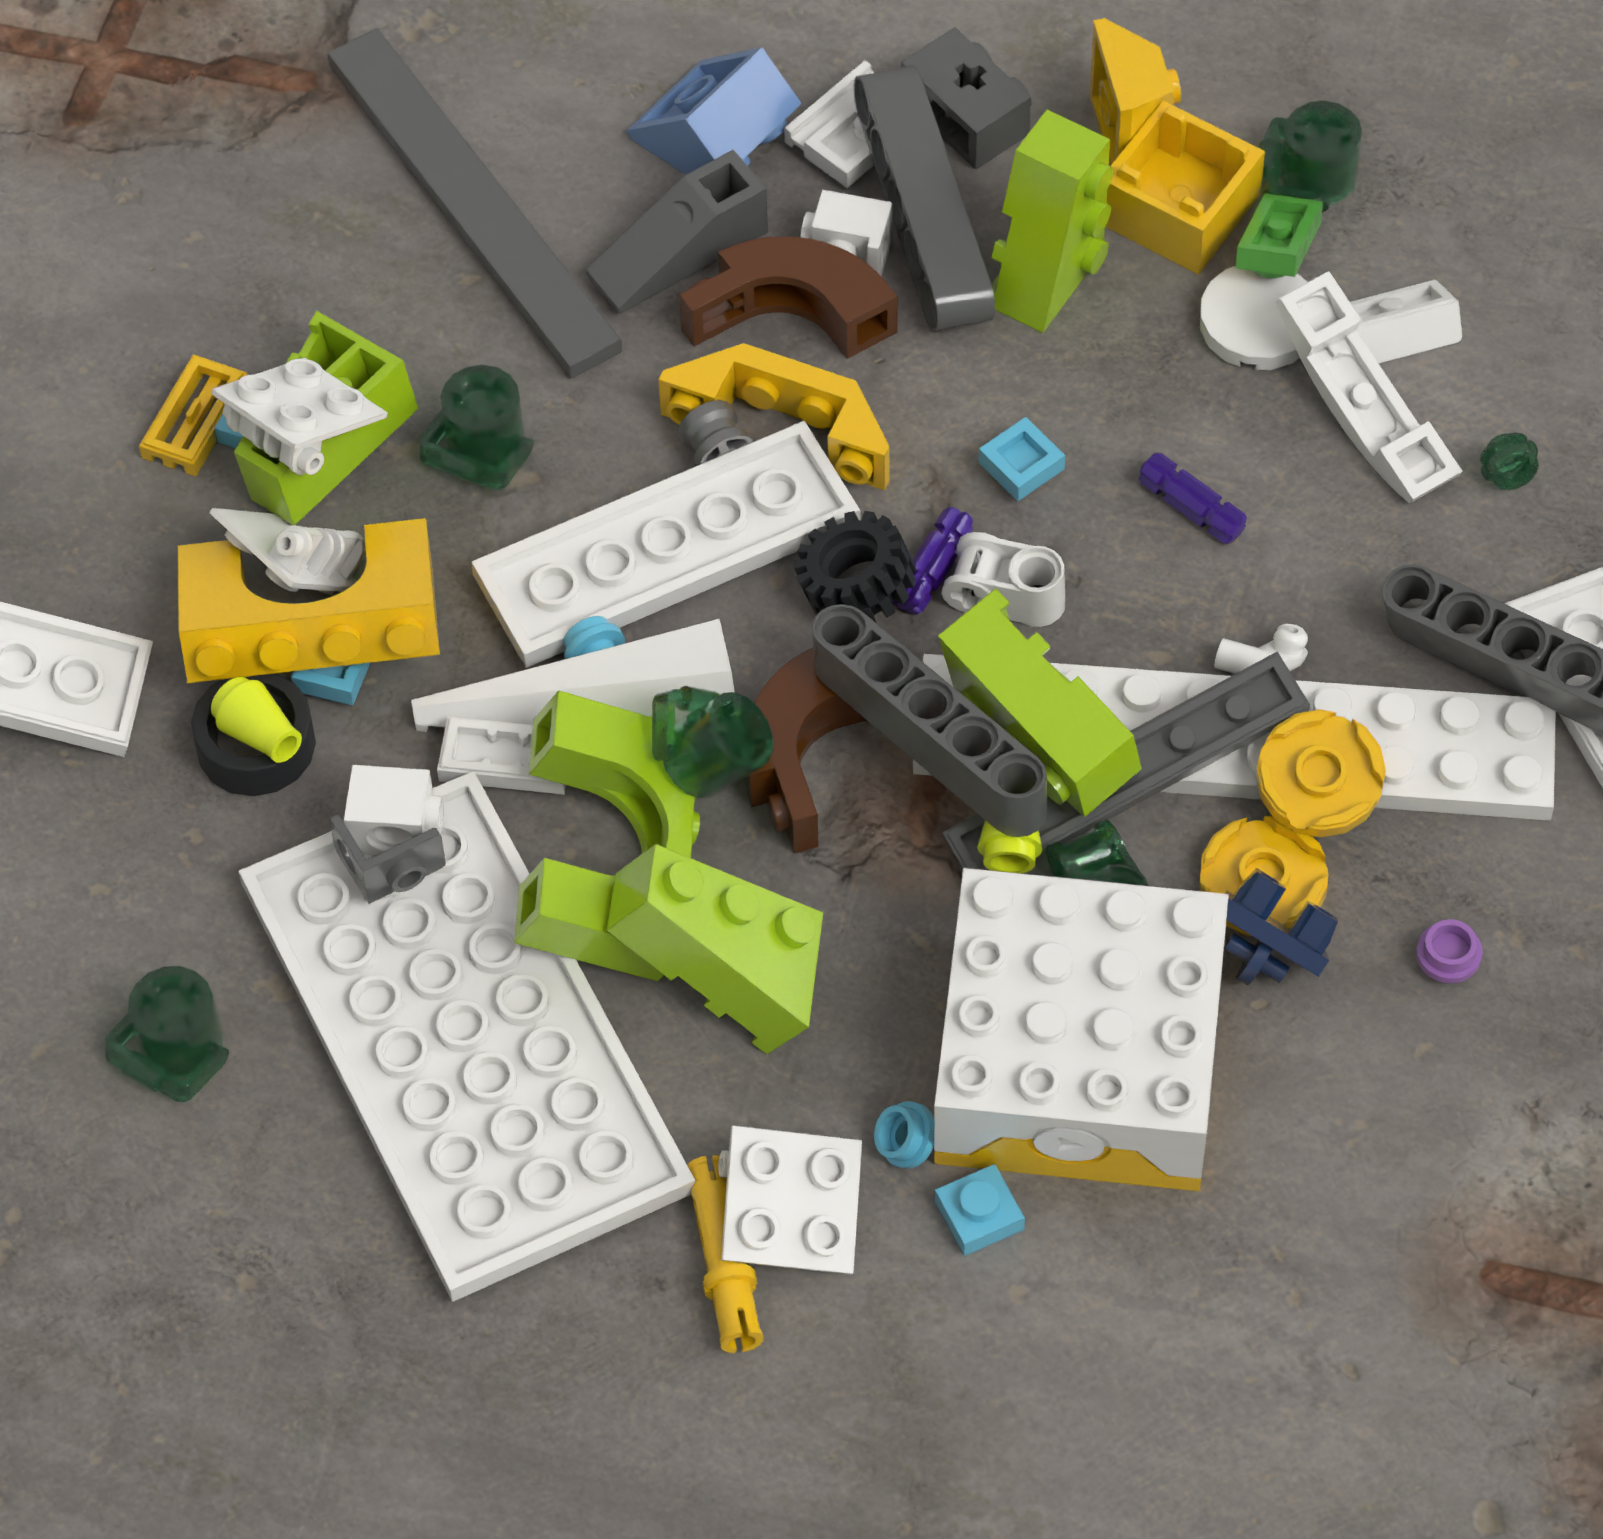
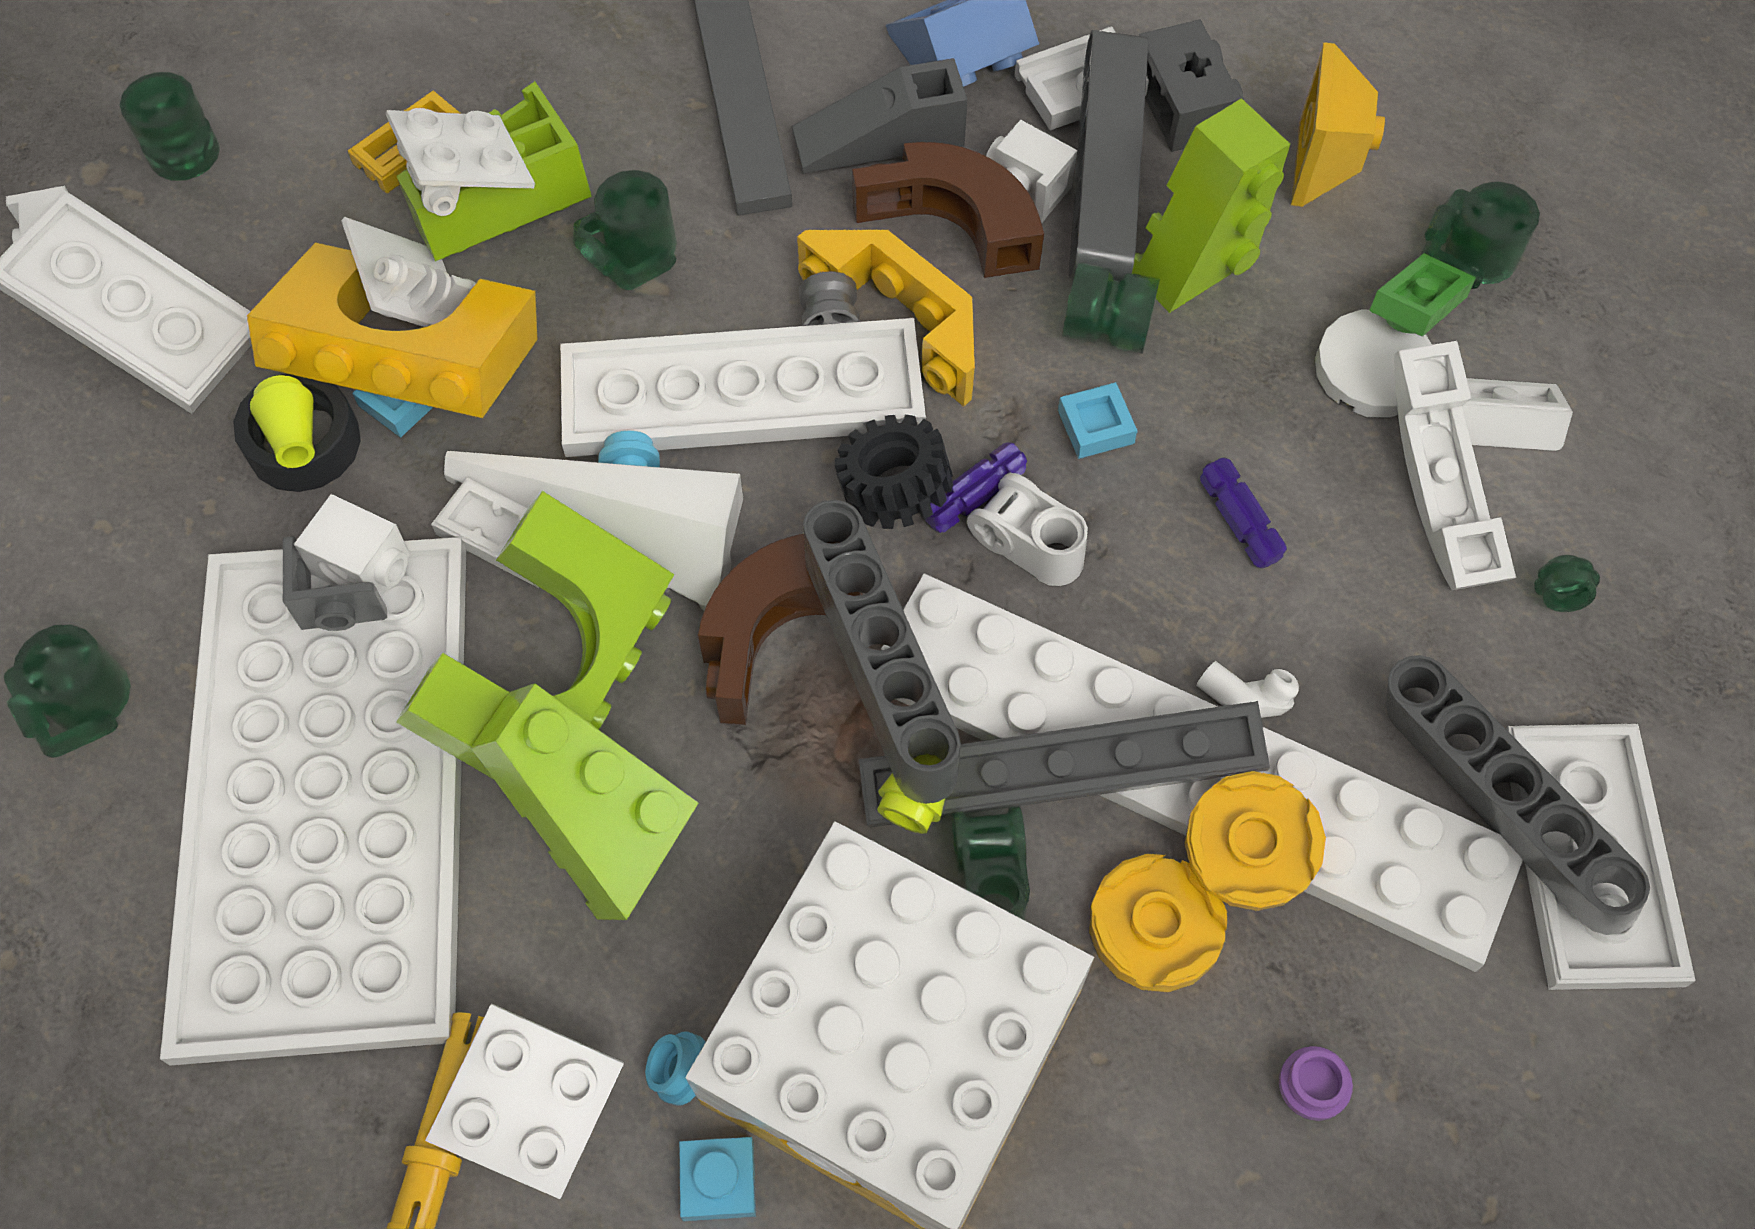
camera: 20 degrees right, 5 degrees up
(711, 745) = (668, 594): clear green piece -> none
(995, 346) = (1110, 307): none -> clear green wheel
(1056, 719) = (990, 674): lime wedge -> none
(1183, 186) = (1349, 222): yellow container -> none
(1302, 943) = (1130, 1002): dark blue hips -> none

